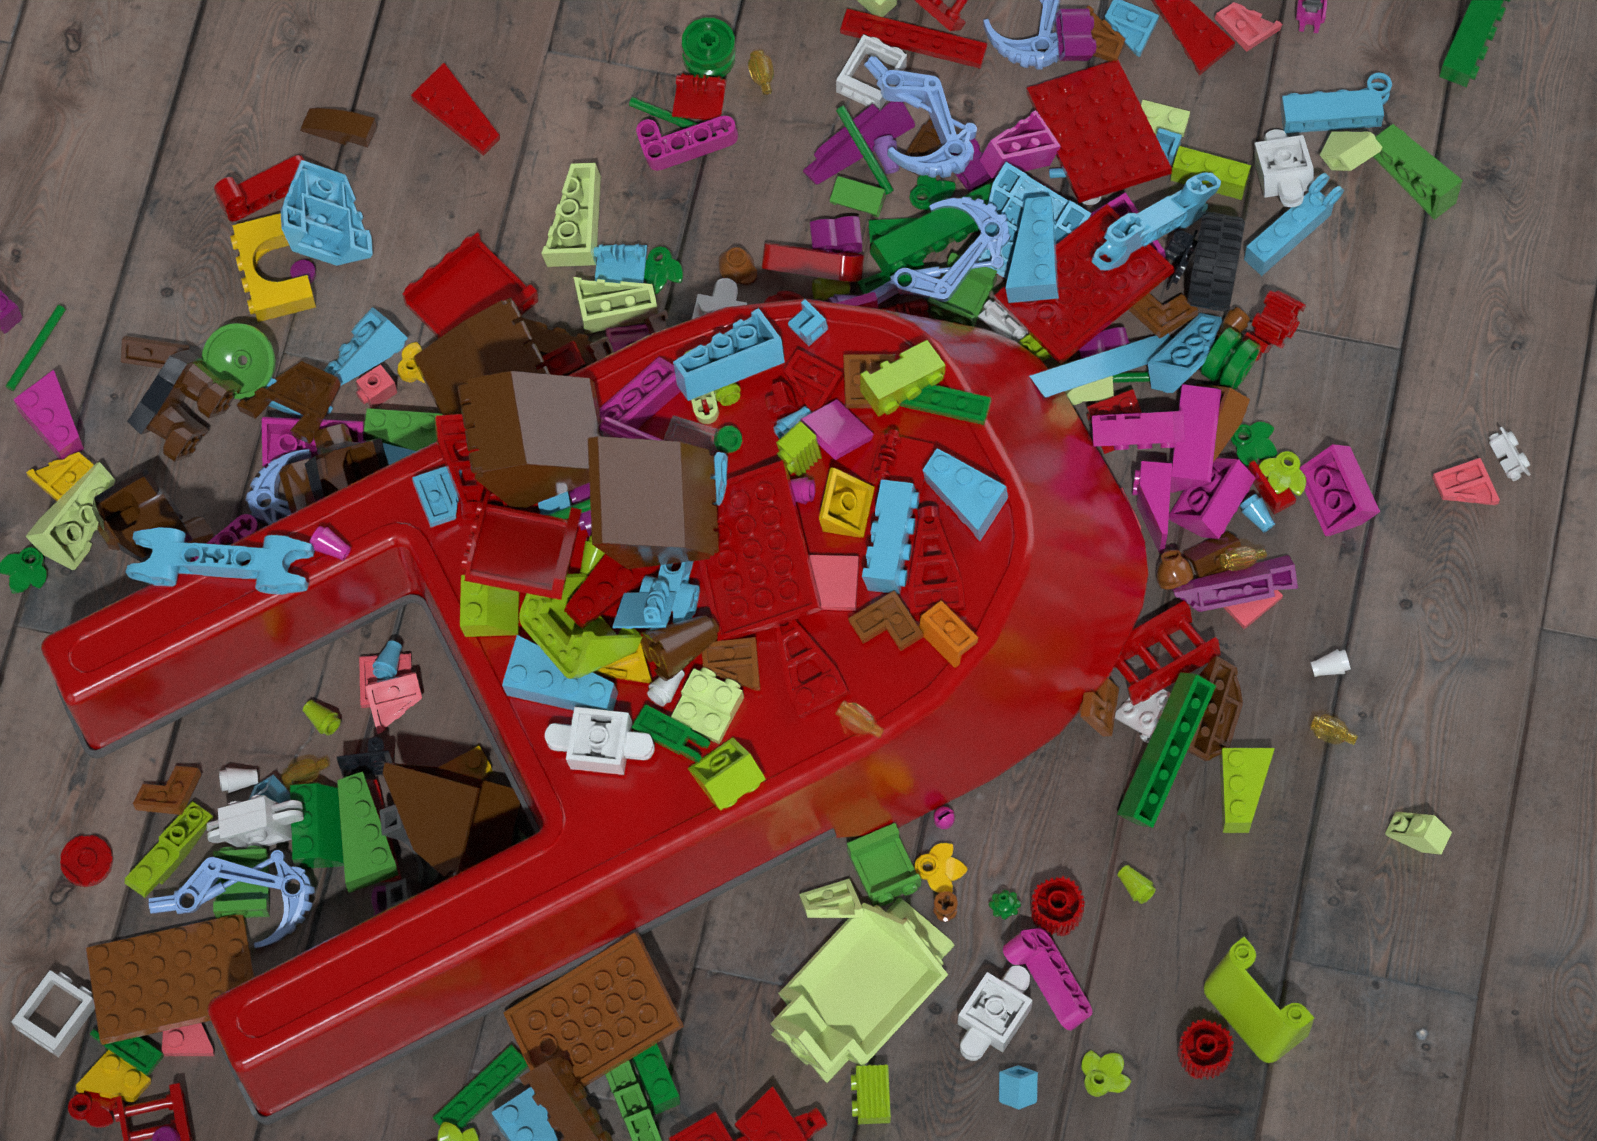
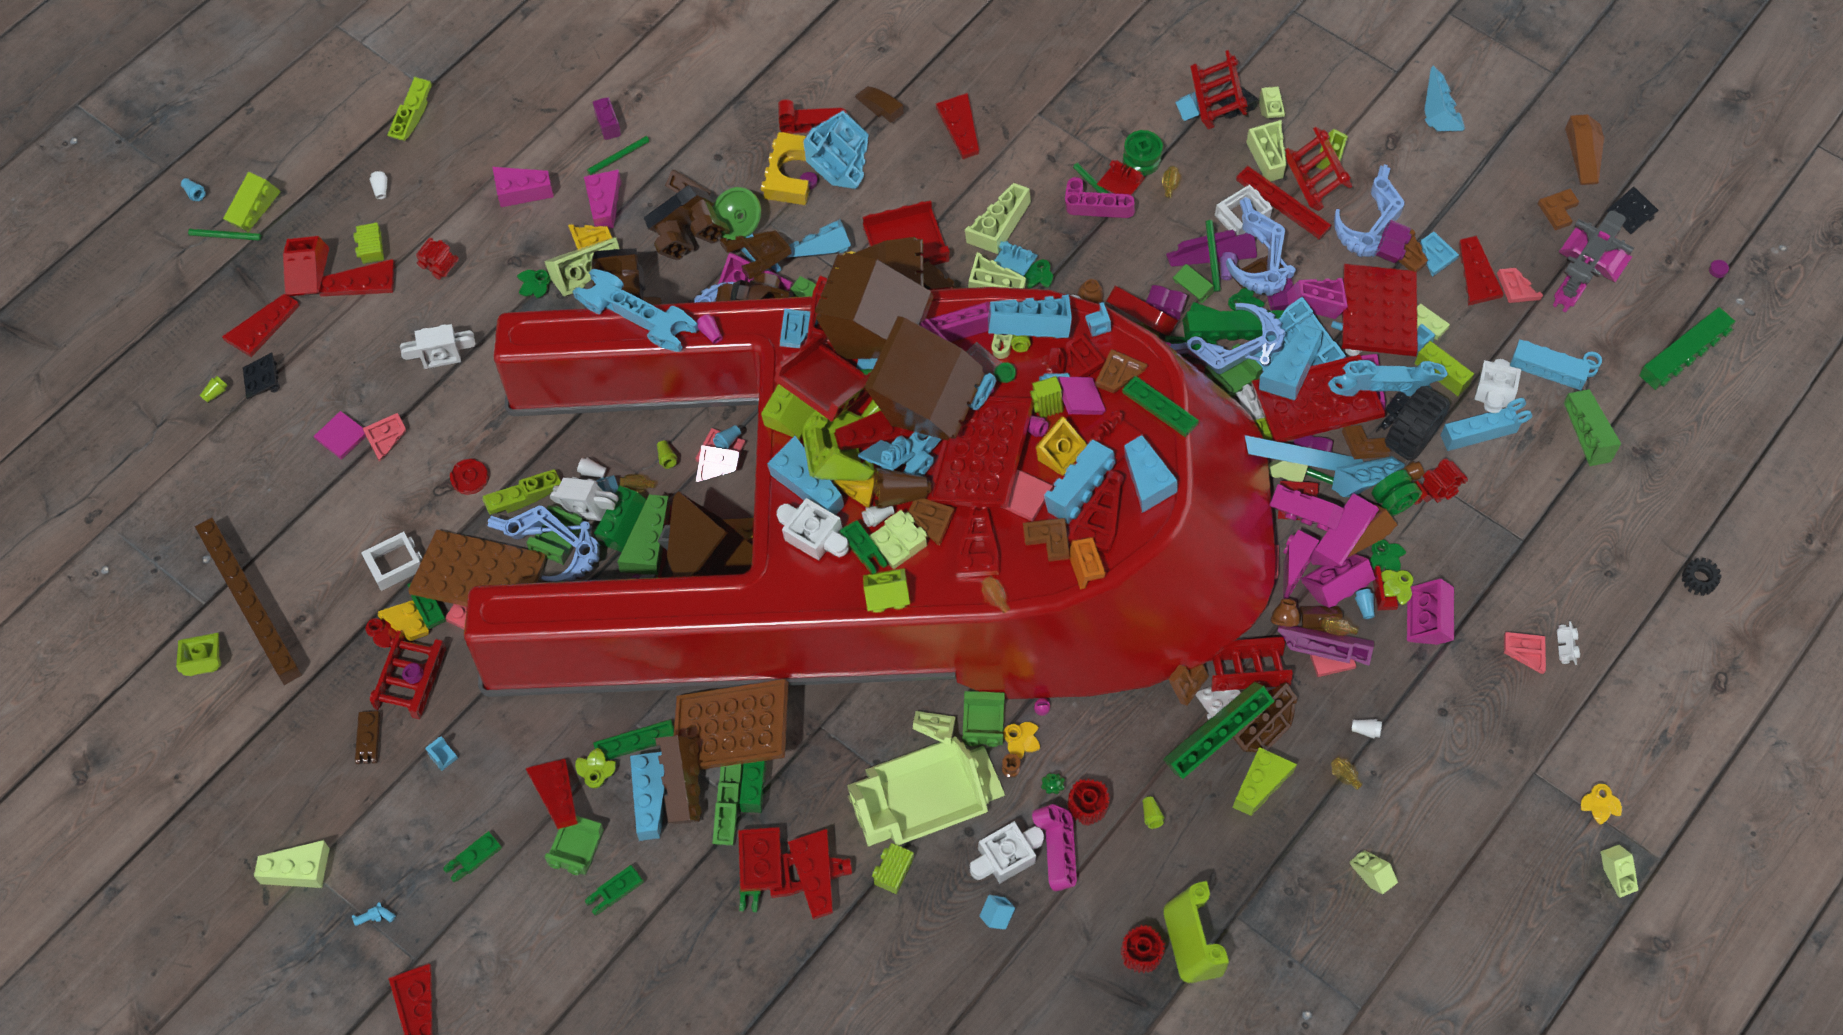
camera: 25 degrees right, 5 degrees down
(169, 798) = (543, 460): dark orange plate -> none
(368, 762) = (668, 489): black hinge -> none
(375, 387) = (814, 266): coral brick -> none
(902, 378) = (1141, 379): lime wedge -> none
(1105, 1070) = (1065, 930): lime plate -> none
(1349, 149) = (1550, 393): yellowish green slope -> none

